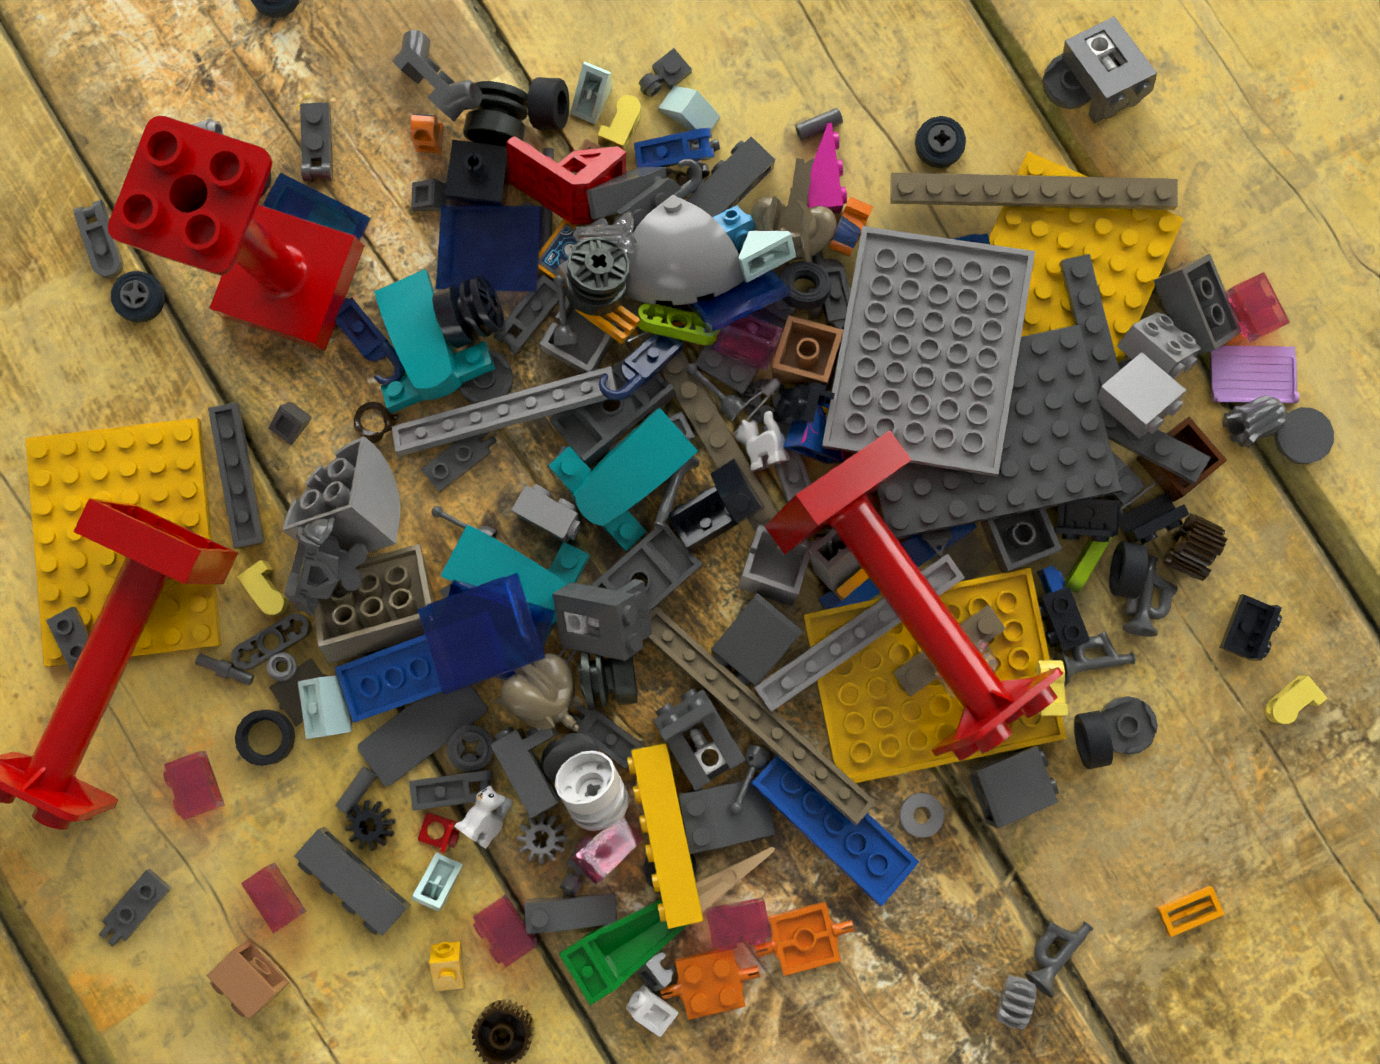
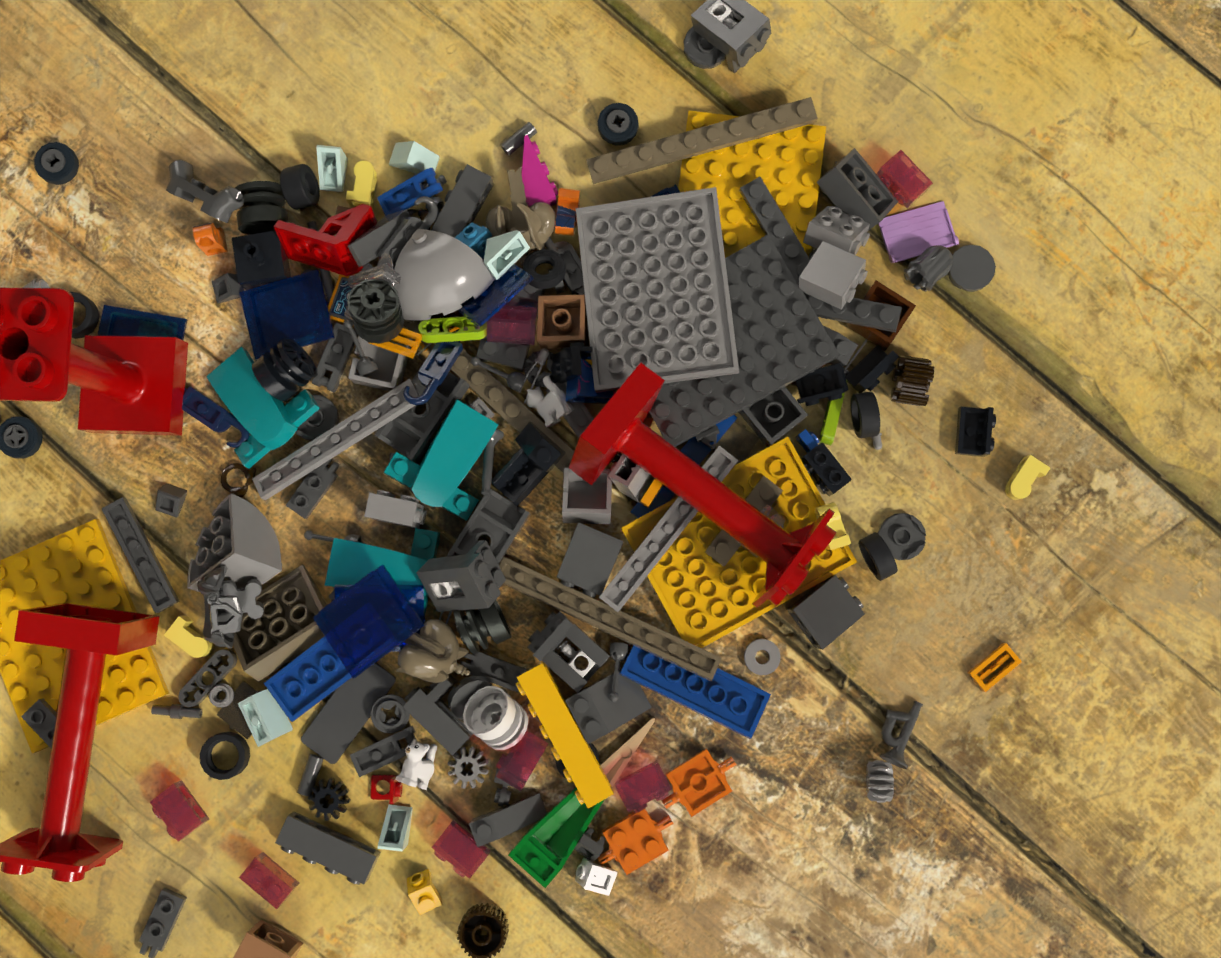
camera: 10 degrees left, 0 degrees up
(316, 141) = (125, 271): dark grey plate -> none
(669, 69) = (388, 131): dark grey plate -> none
(1081, 663) = (850, 499): dark grey piece -> none
(1141, 623) = (888, 454): dark grey piece -> none

